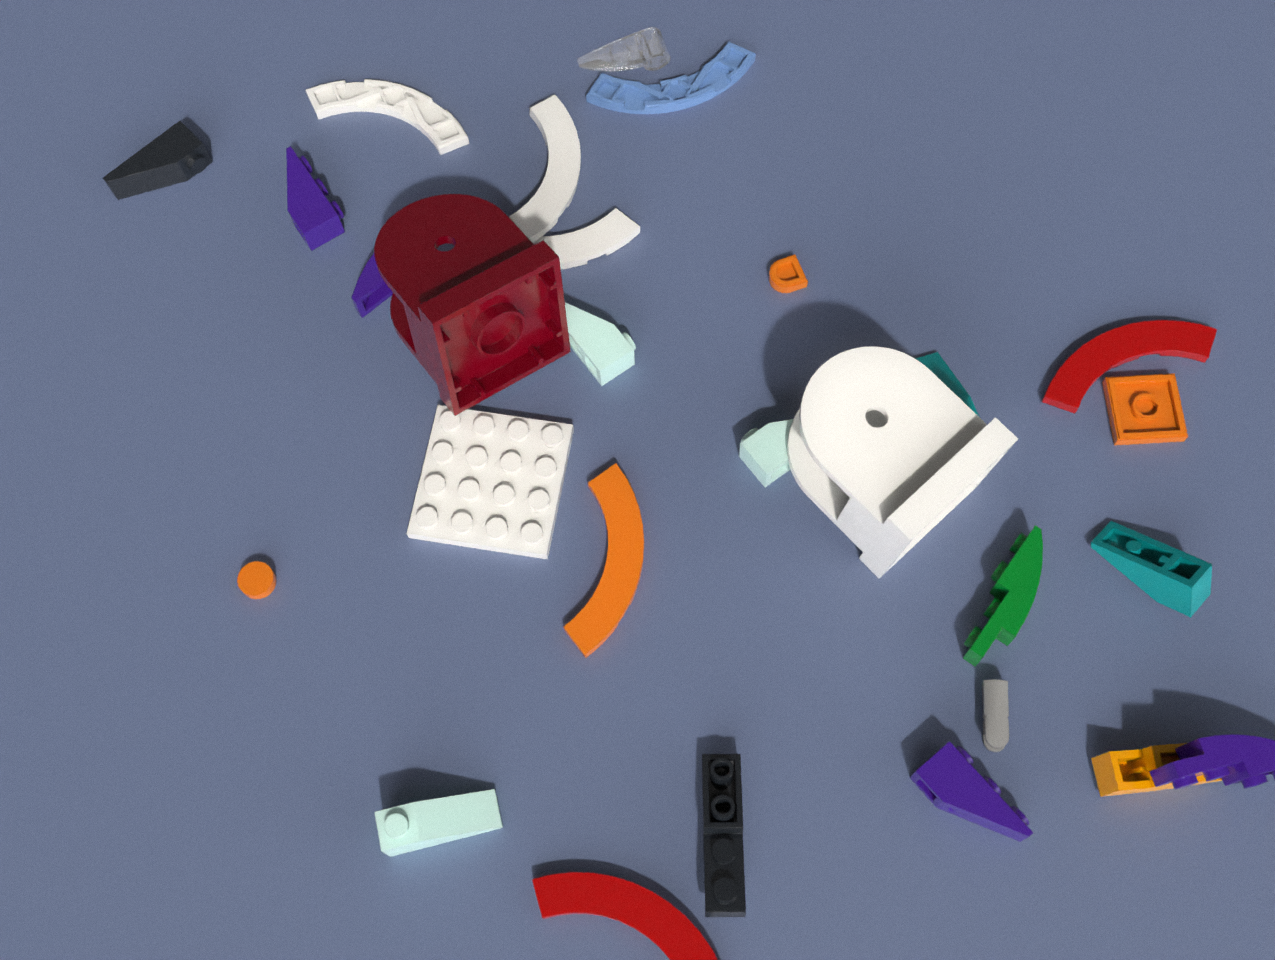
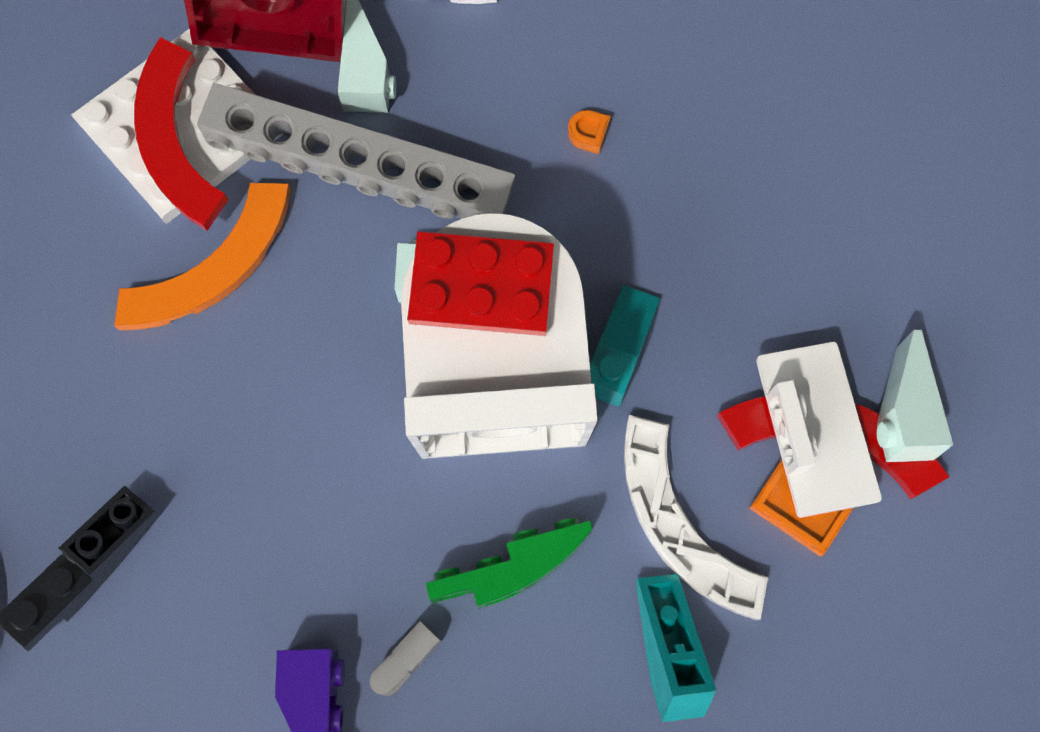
camera: 35 degrees right, 5 degrees up
(499, 498) = (159, 137): none -> red tile
(762, 359) = (229, 108): none -> light grey brick
(863, 410) = (480, 283): none -> red plate
(1088, 498) = (672, 532): none -> white tile
(1116, 359) = (818, 430): none -> white bracket
(1158, 300) = (911, 412): none -> light aqua slope

